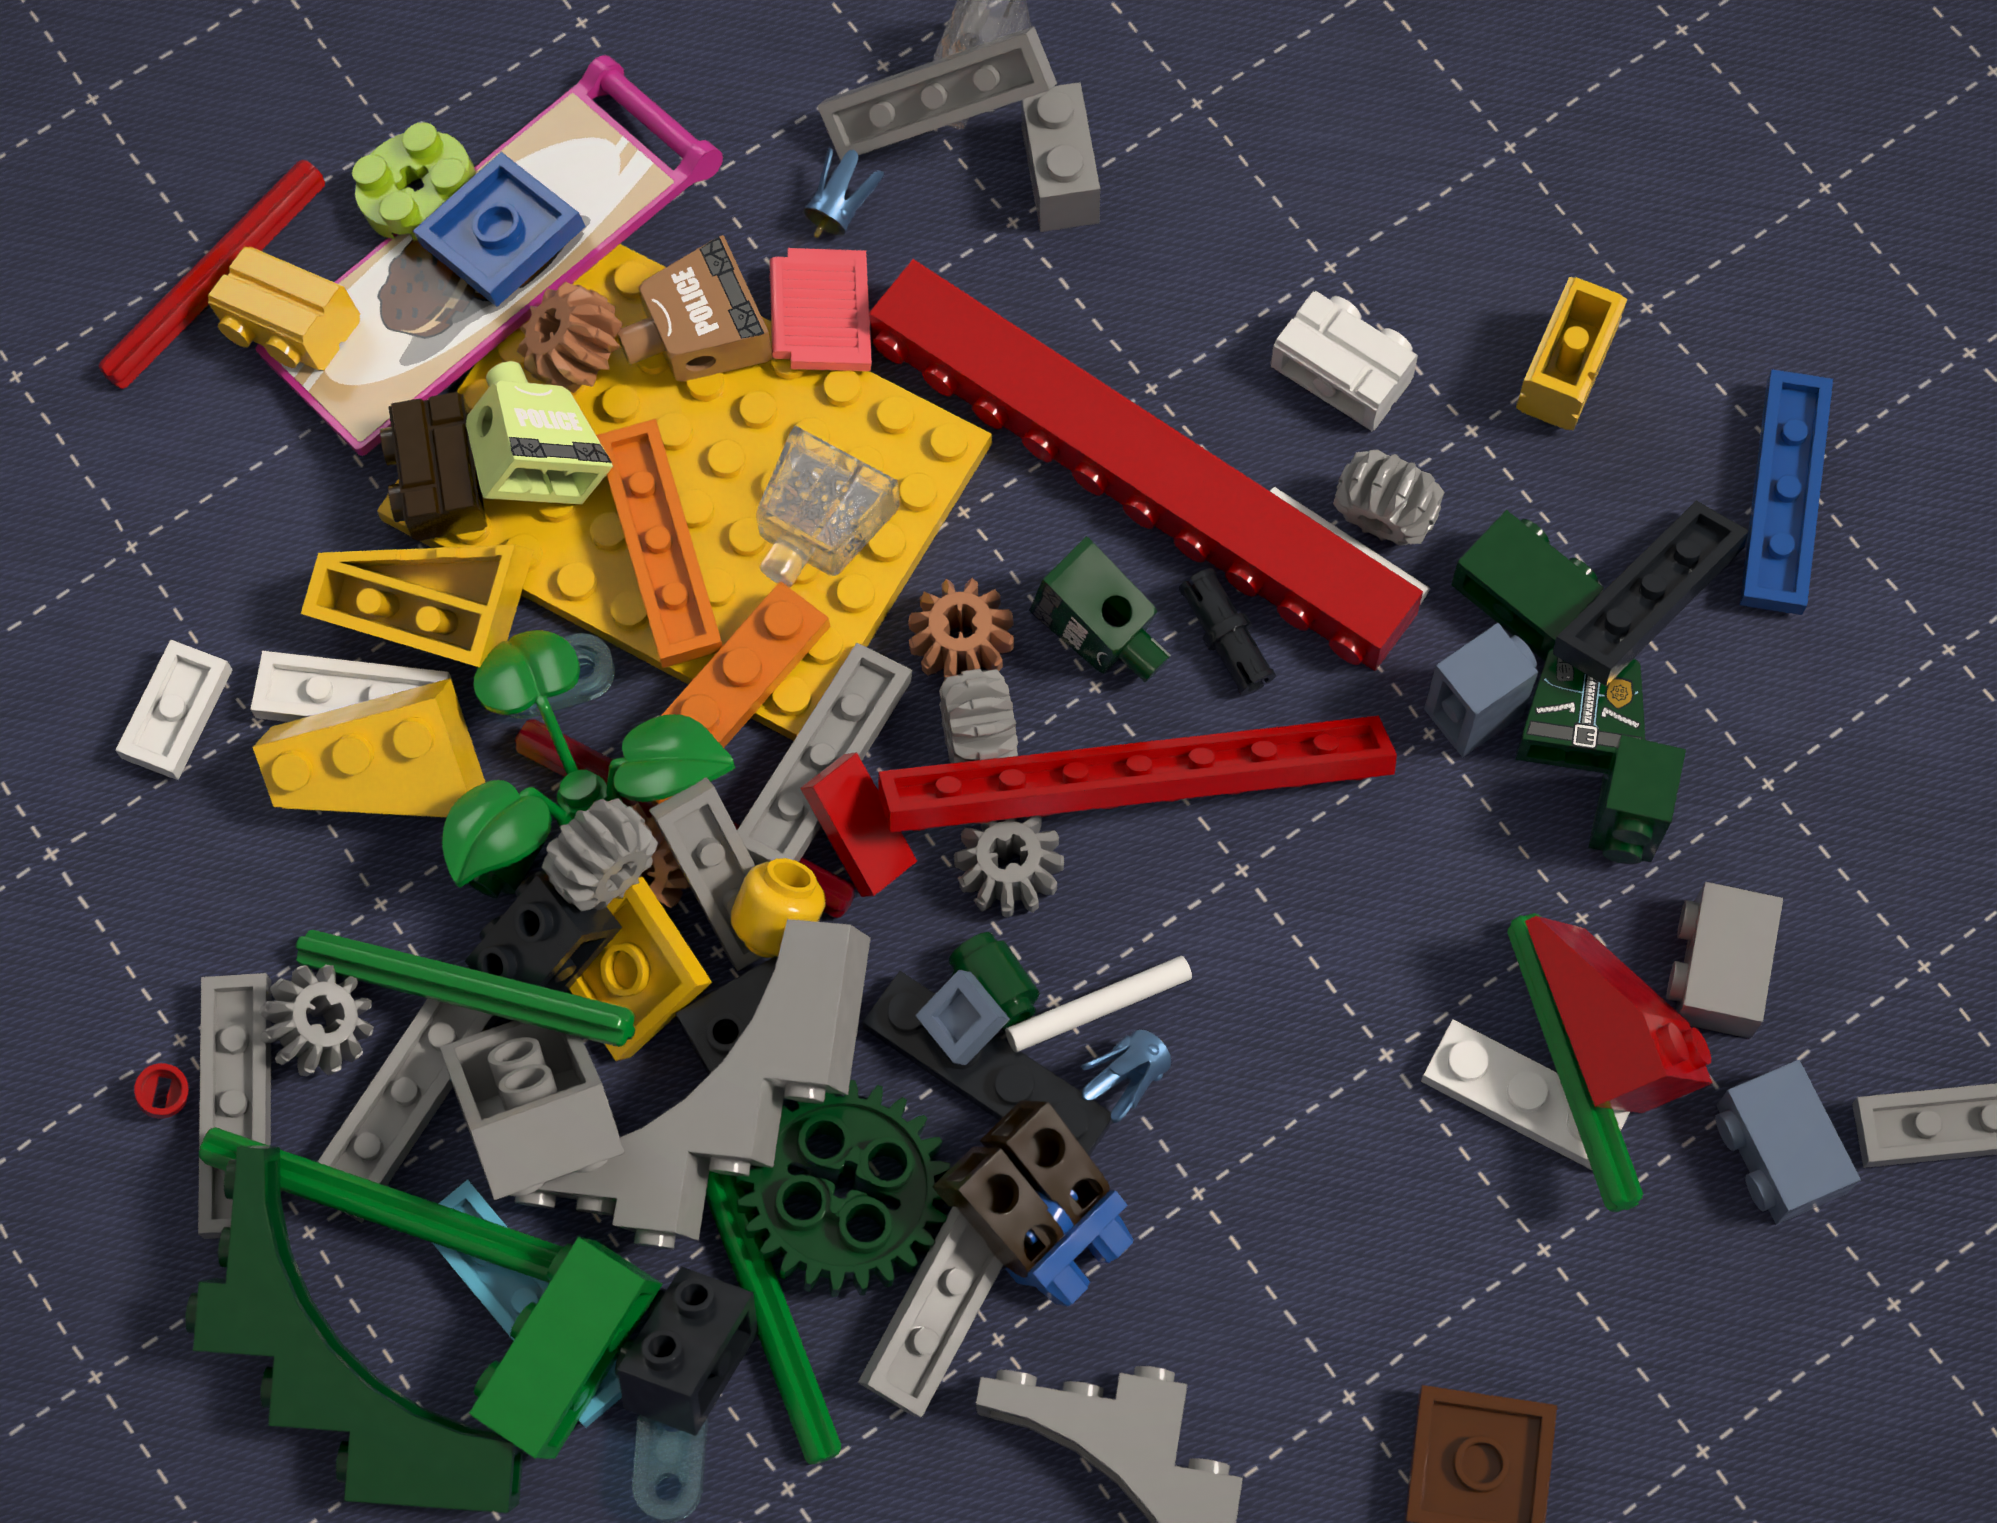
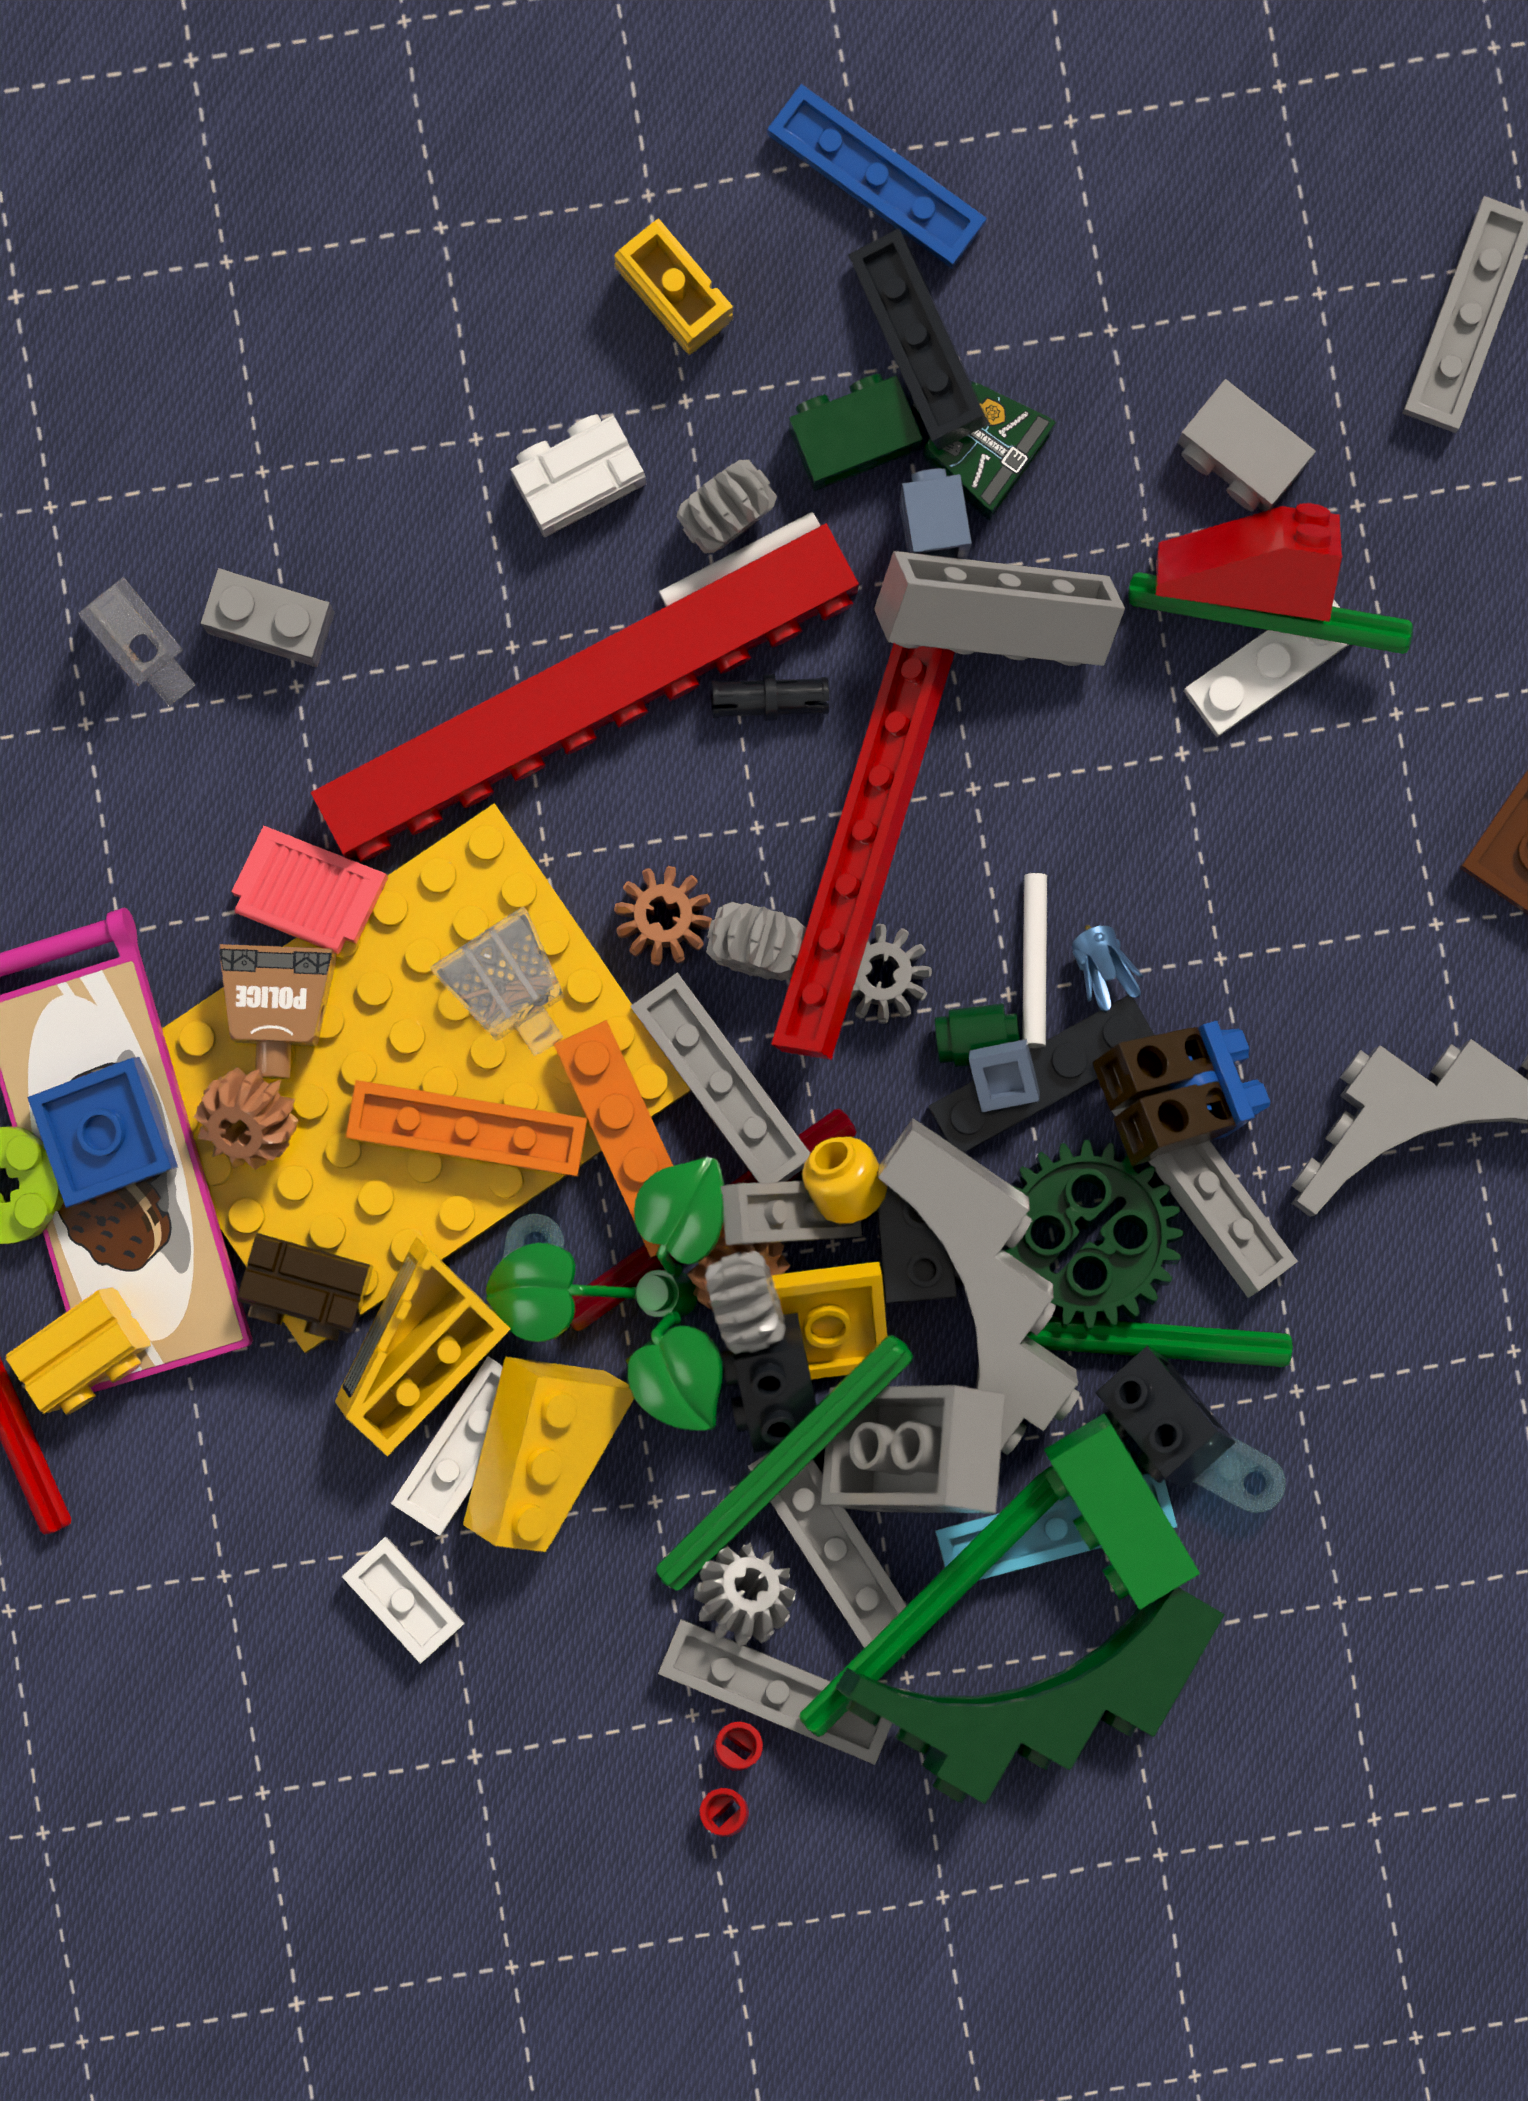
camera: 70 degrees left, 15 degrees up
(92, 1100) = (716, 1804): none -> red hinge
(533, 441) = (328, 1193): yellowish green torso -> none
(828, 207) = (202, 823): flat silver piece -> none
(856, 824) = (795, 1082): red tile -> none
(938, 93) = (171, 697): light grey plate -> none
(1085, 594) = (689, 804): dark green torso -> none
(1427, 784) = (998, 609): none -> light grey brick
(1636, 800) = (1089, 450): dark green brick -> none
(1785, 1143) = (1412, 484): sand blue brick -> none

